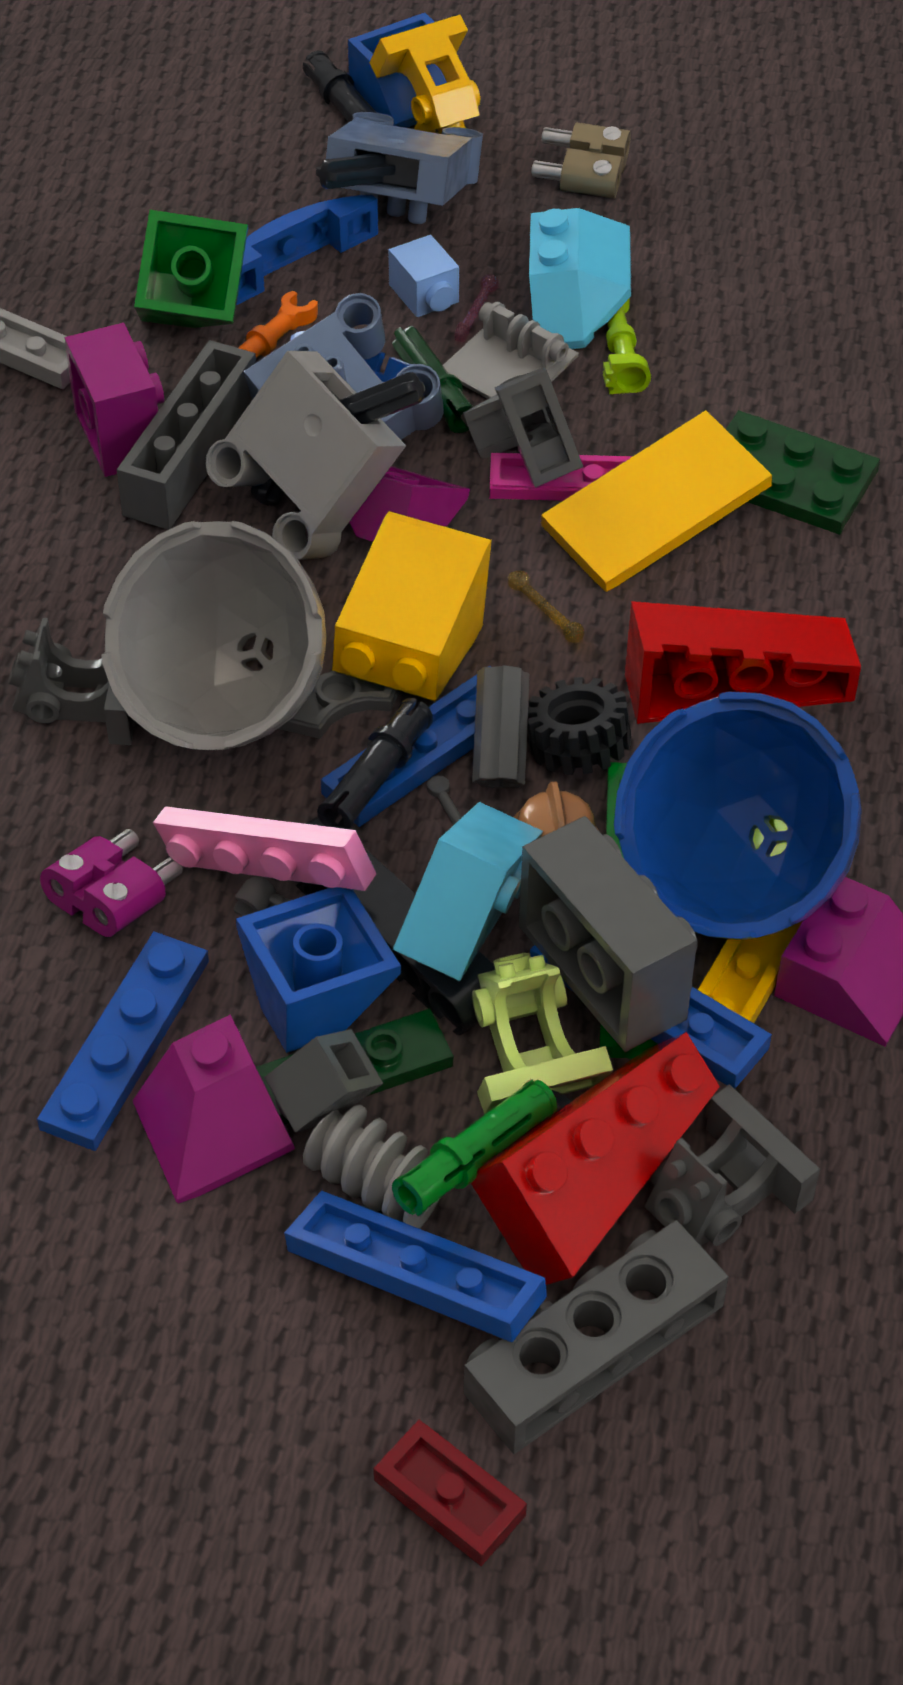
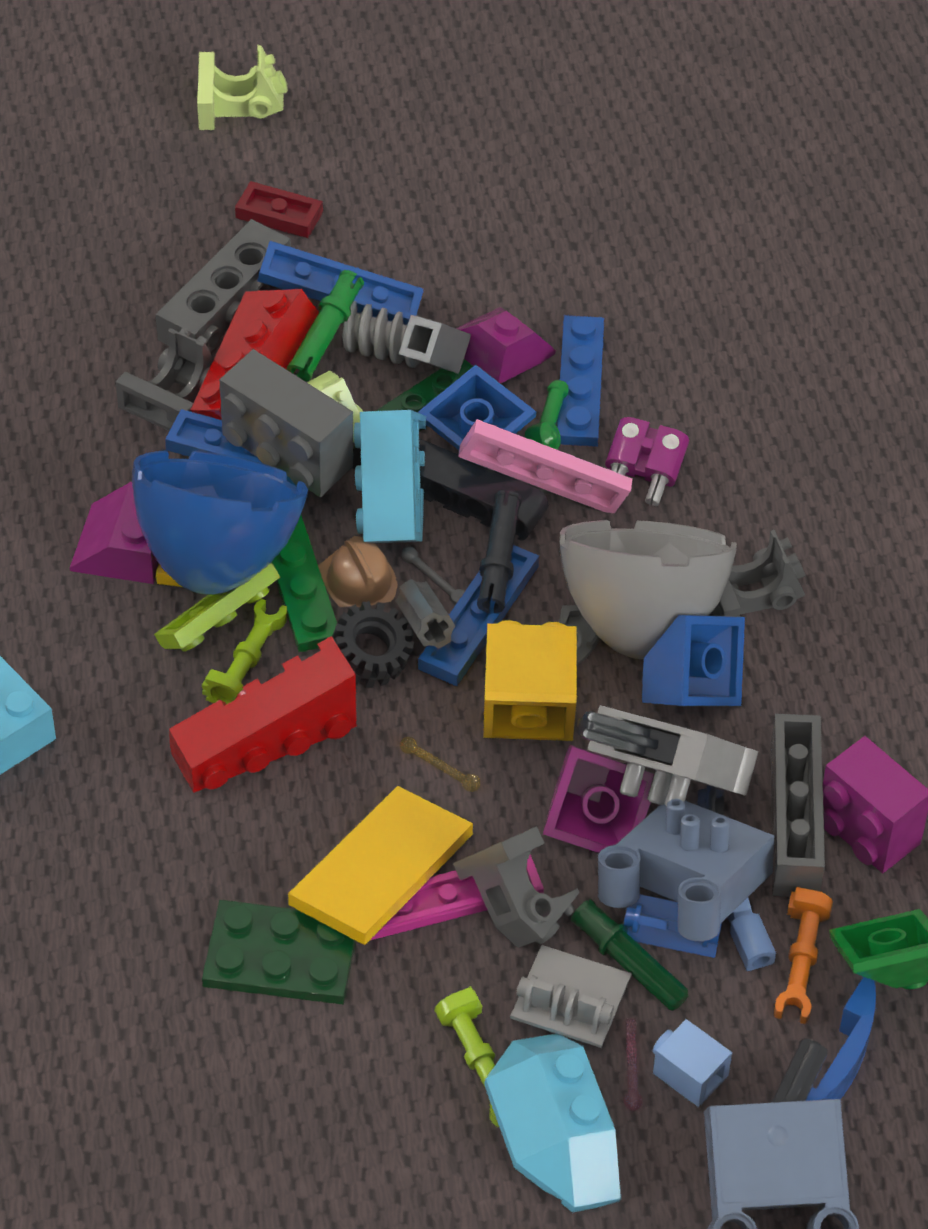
camera: 160 degrees right, 0 degrees up
(222, 952) = (546, 430): none -> green piece

